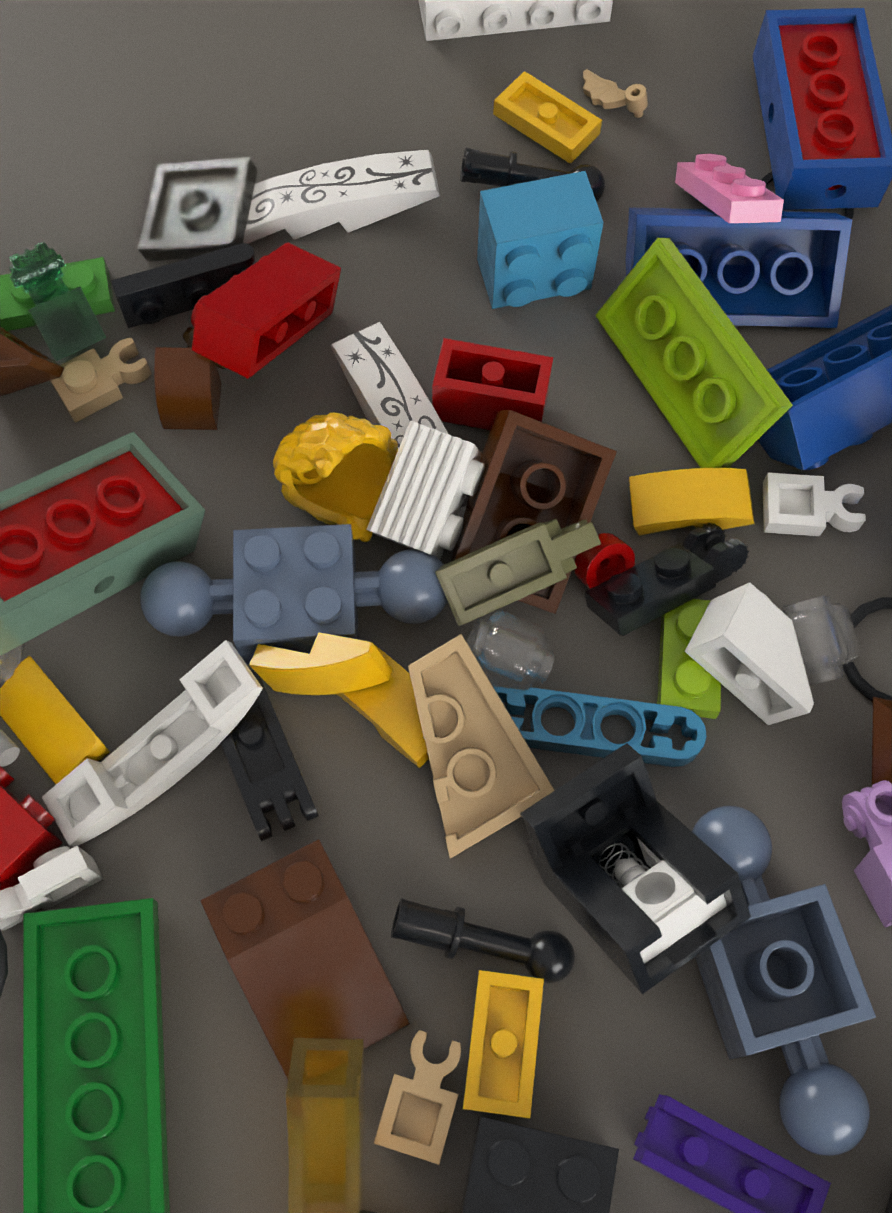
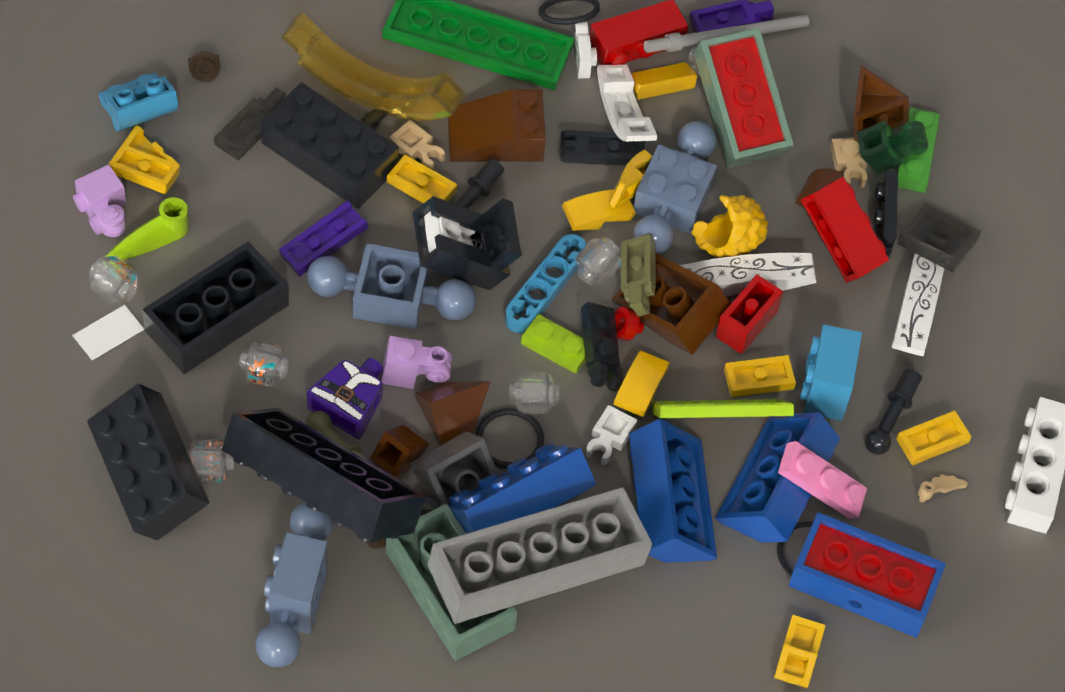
camera: 110 degrees right, 10 degrees down
(427, 490) = (699, 250): white brick -> none
(473, 747) = (557, 223): tan wing -> none
(579, 350) = (759, 376): none -> yellow plate
(753, 654) = (542, 352): white slope -> none

